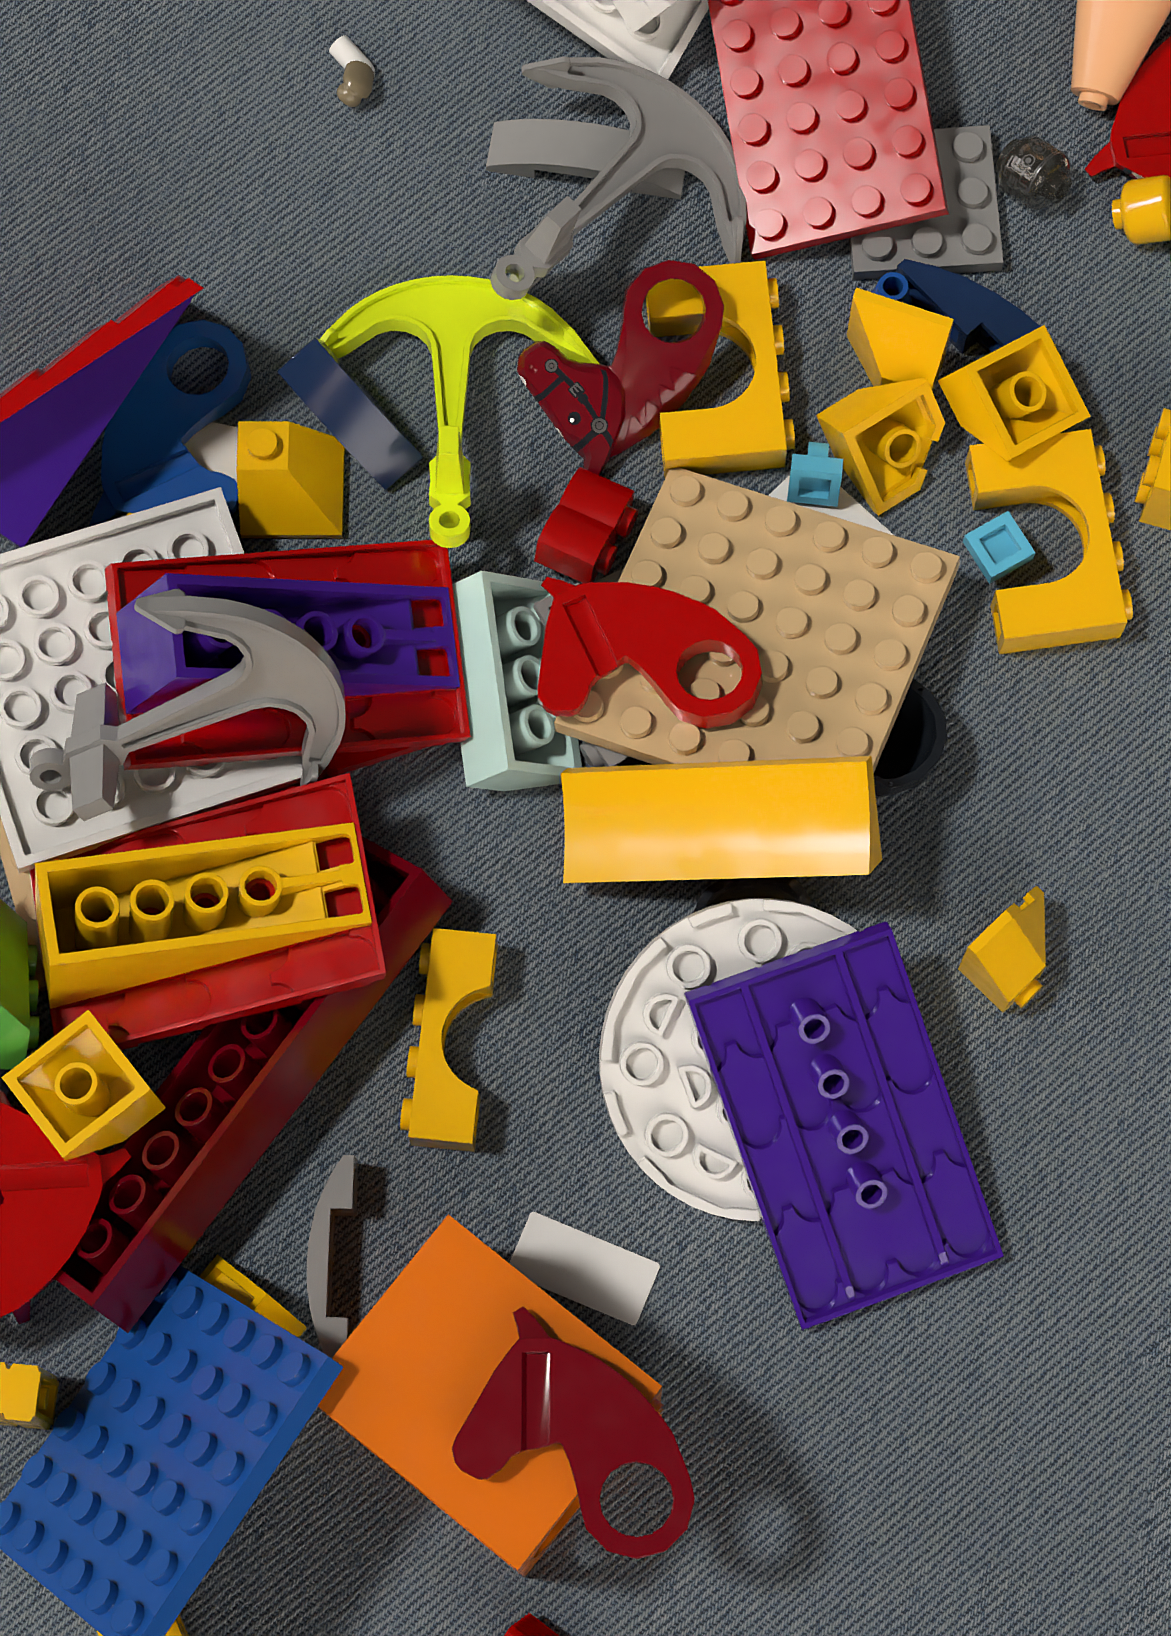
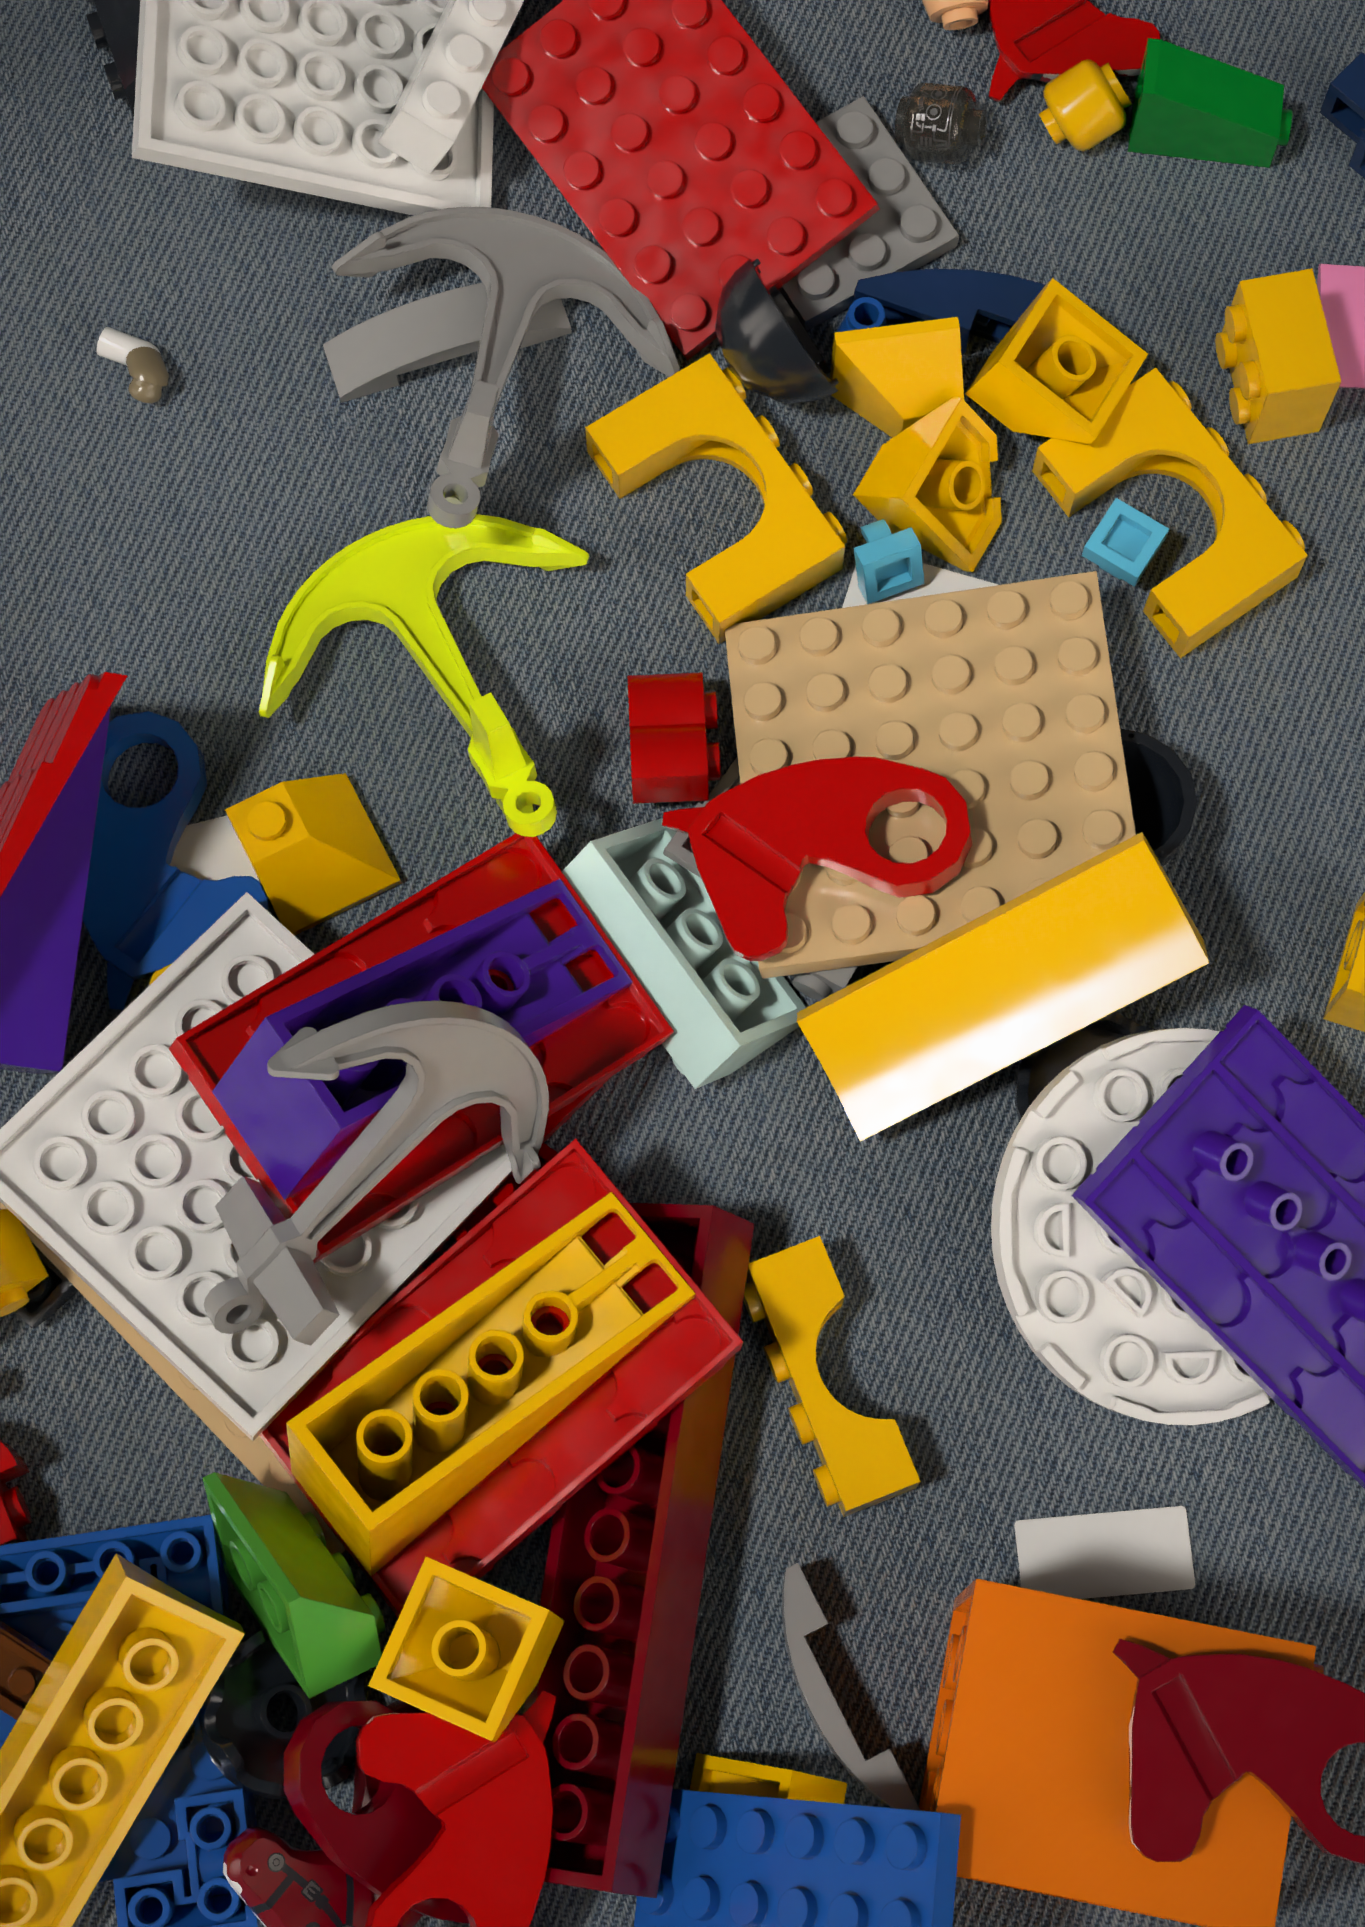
camera: 30 degrees left, 0 degrees up
(350, 413) = (344, 739): dark blue slope -> none
(620, 404) = (630, 588): dark red animal -> none
(814, 273) = (768, 342): none -> black cylinder

